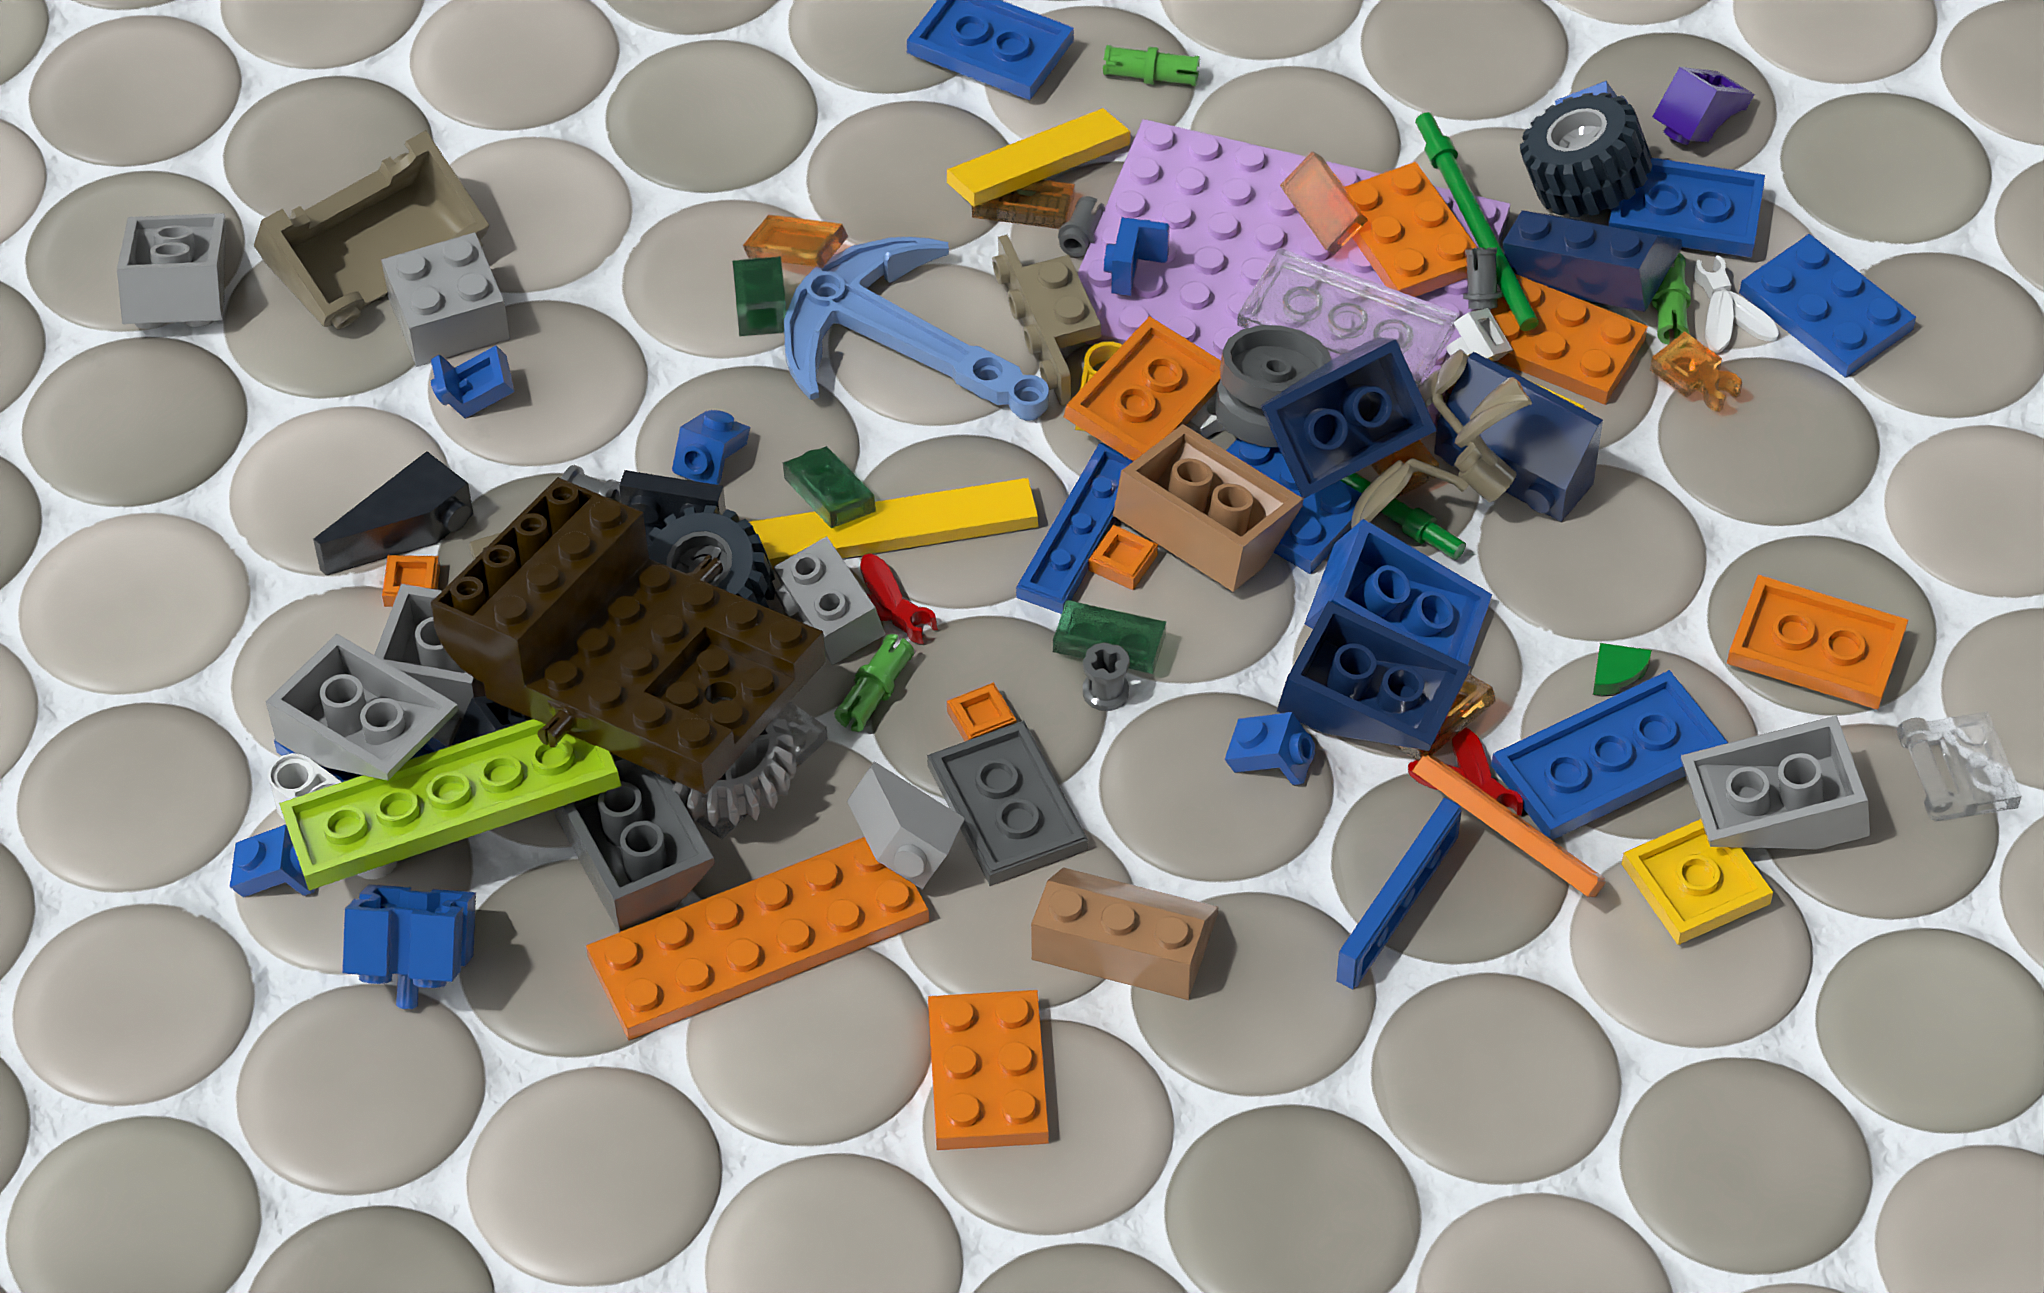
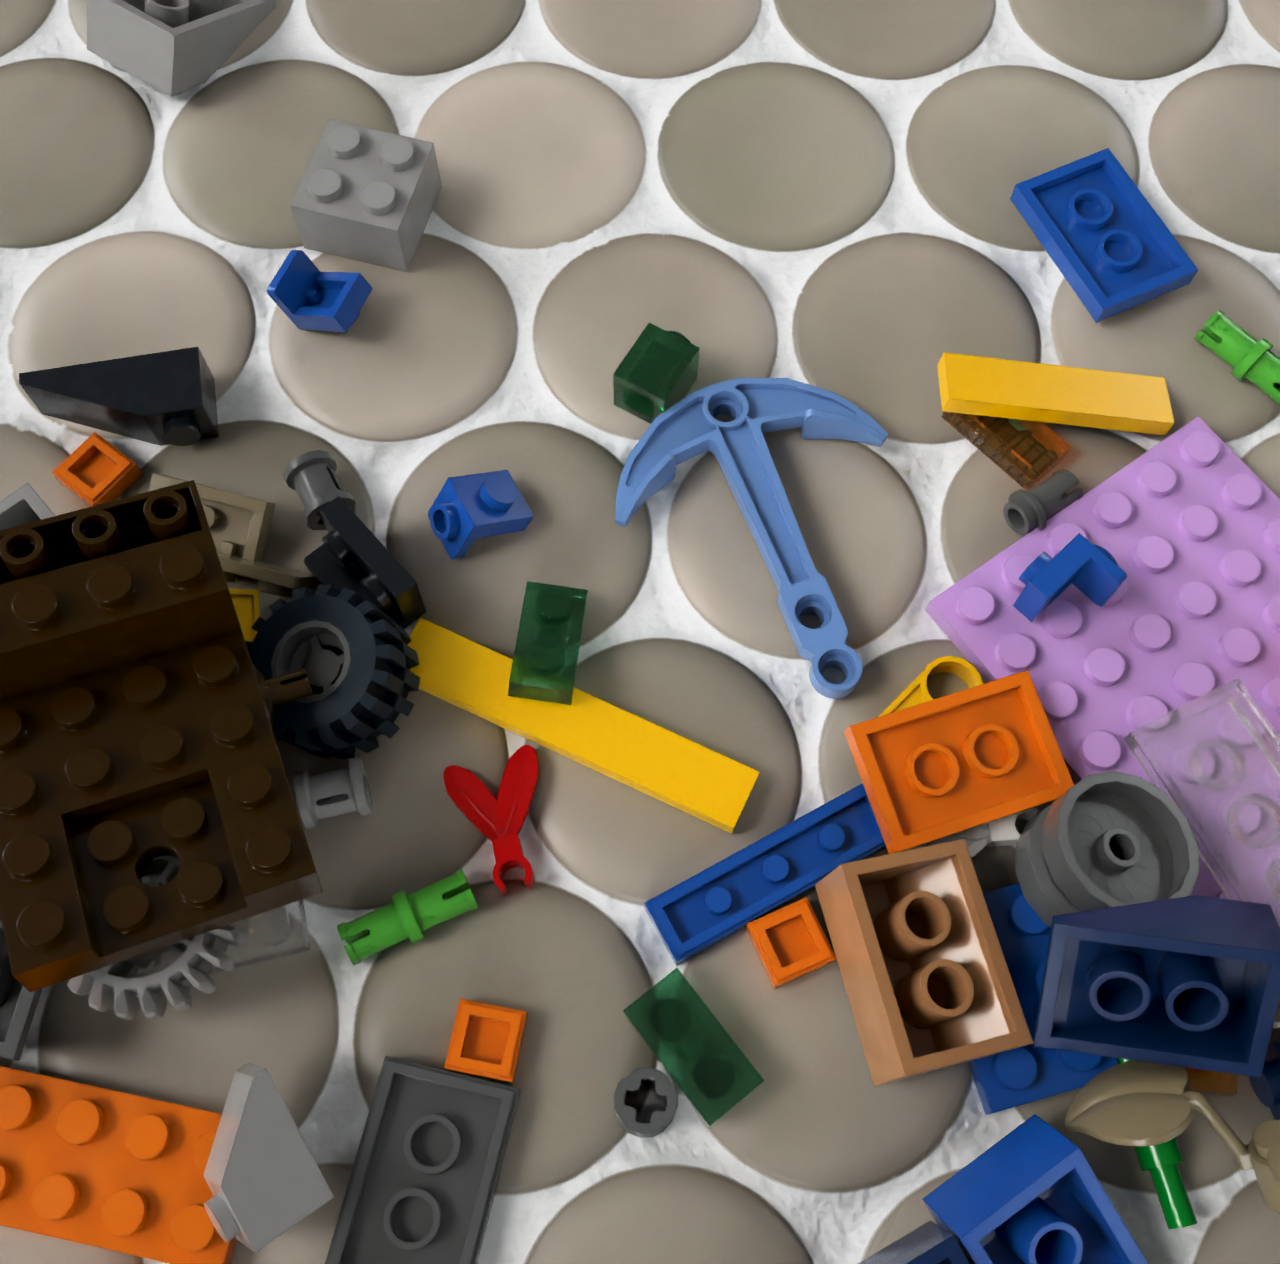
camera: 35 degrees right, 15 degrees up
(336, 246) = (369, 77): dark tan windscreen -> none
(796, 240) = (738, 338): clear orange tile -> none
(828, 598) = (432, 785): light grey brick -> none
(1052, 309) = (938, 588): dark tan bracket -> none

